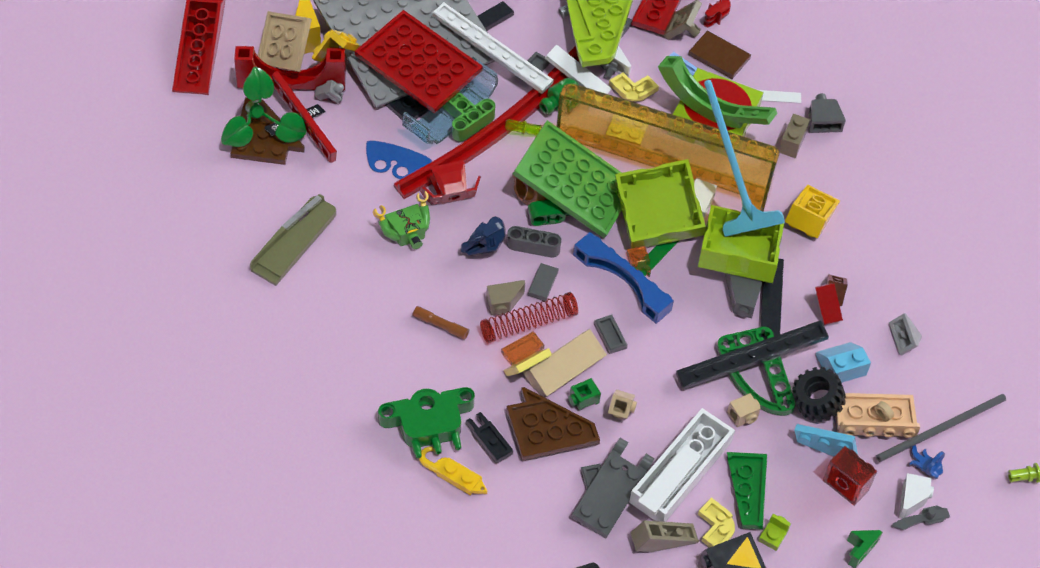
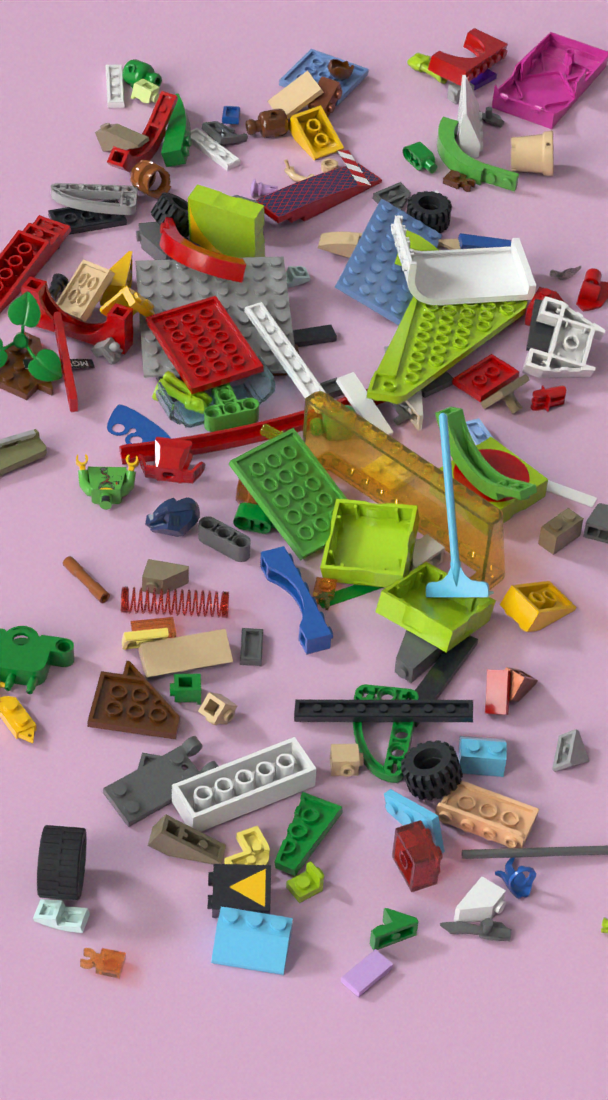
camera: 25 degrees right, 10 degrees down
(248, 37) = (58, 285): none -> black pin
(437, 119) = (194, 402): none -> lime piece
(490, 438) = (67, 696): black hinge -> none
(543, 282) = (212, 578): dark grey tile -> none
(633, 91) = (415, 441): light yellow plate -> none
(669, 480) = (216, 787): white tile -> none
(719, 54) = (529, 437): reddish brown tile -> none
(884, 411) = (492, 810): tan tile -> none

